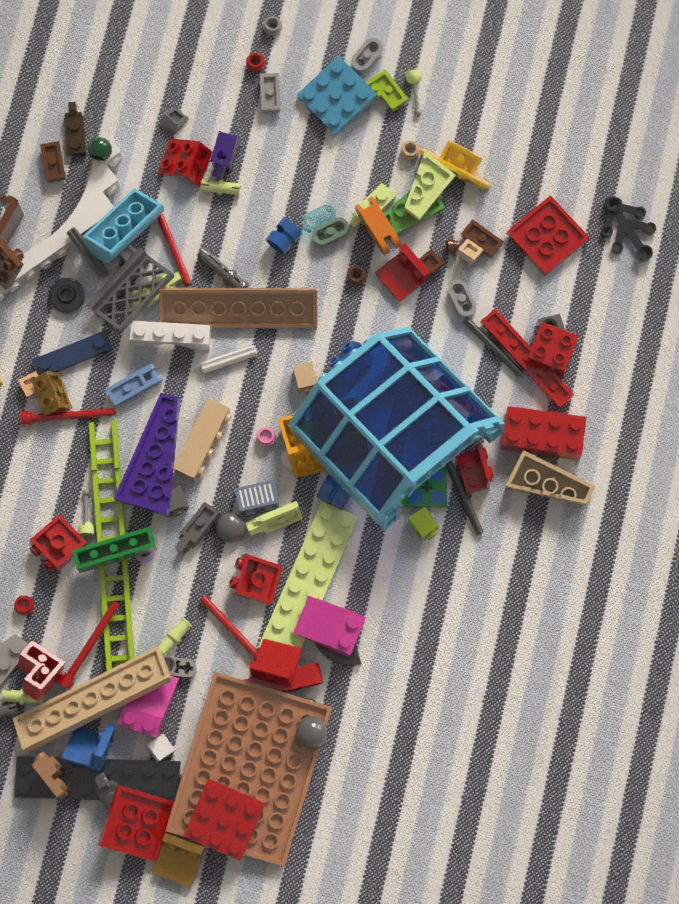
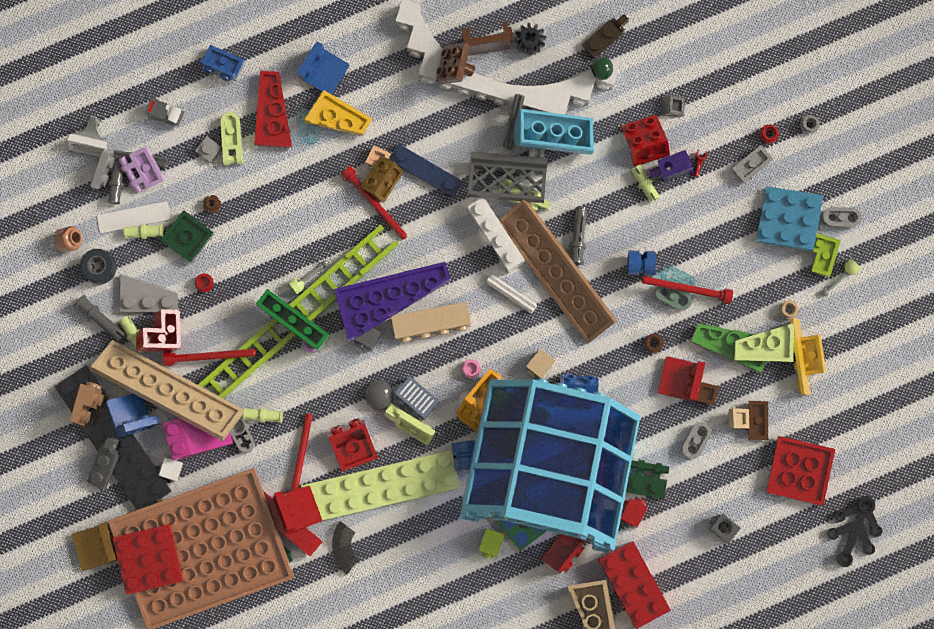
camera: 55 degrees right, 5 degrees up
(34, 195) = (531, 32): none -> black gear
(53, 161) = (567, 39): reddish brown plate -> none
(56, 543) = (268, 272): red plate -> none
(66, 295) = (469, 130): black wheel -> none
(133, 385) = (435, 236): medium blue plate -> none
(136, 823) = (98, 494): red plate -> none
(174, 250) = (566, 187): red bar -> none
(197, 527) = (359, 369): dark grey hinge -> none
(234, 131) = (699, 162): none -> red hand
(311, 732) = (262, 576): dark grey hair -> none
(329, 625) = (356, 529): dark pink slope -> none
(361, 191) = (724, 296): none -> red piece
(377, 225) = (704, 331): orange piece -> none
(382, 196) = (719, 313): yellowish green hinge -> none
(452, 246) = (733, 401): reddish brown plate -> none
(464, 498) = (534, 563): pearl dark grey bar -> none
(470, 364) = (647, 485): none -> dark green plate
(484, 389) = (633, 511): none -> red brick
(493, 347) = (676, 493): pearl dark grey bar -> none
(519, 351) = (686, 527): red plate -> none
(553, 347) = (708, 542): red bracket -> none

